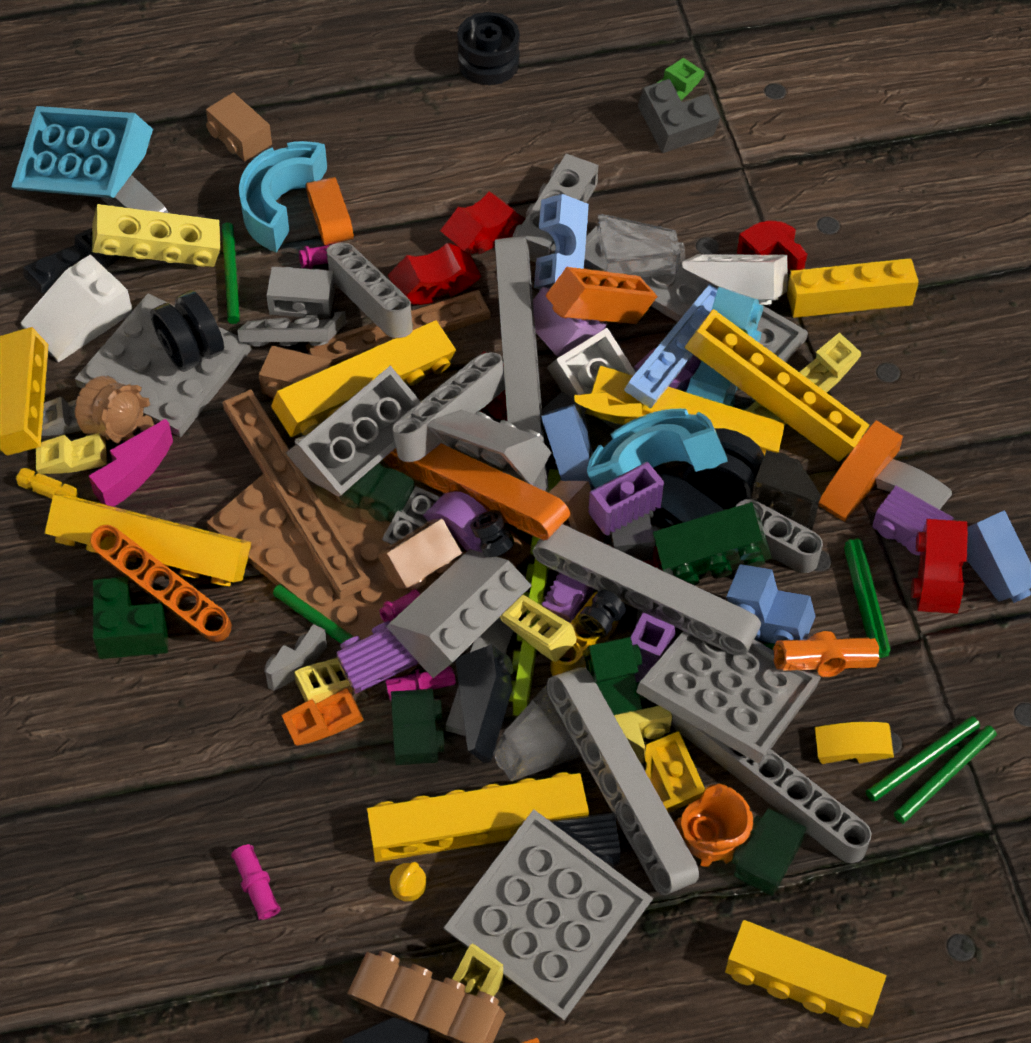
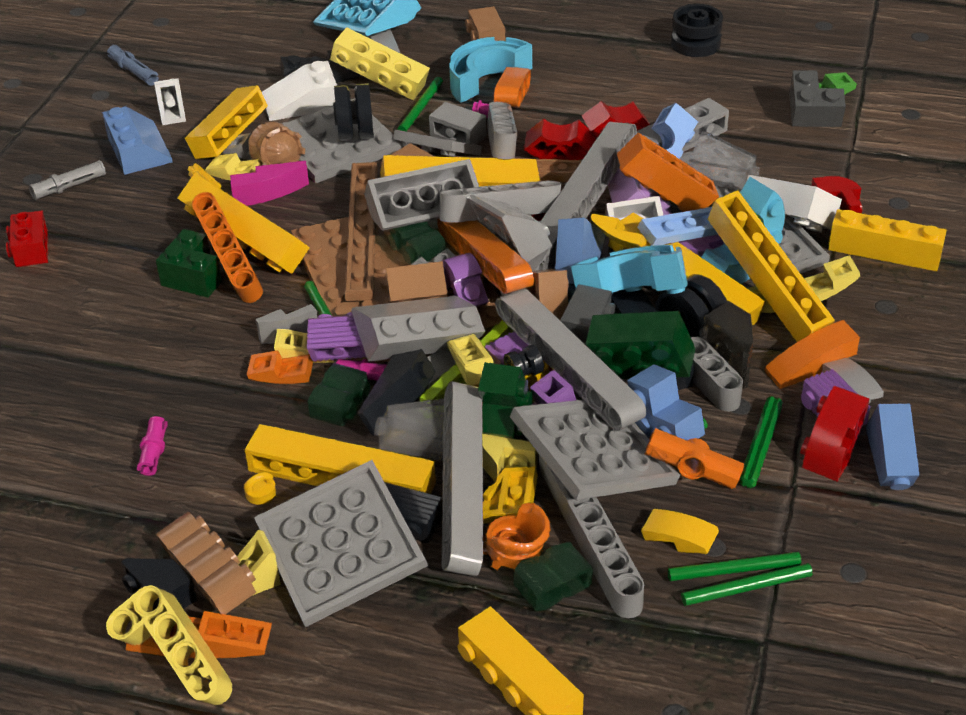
camera: 30 degrees right, 15 degrees down
(492, 534) = (470, 277): black wheel -> none
(626, 498) = (585, 285): medium lavender brick -> none

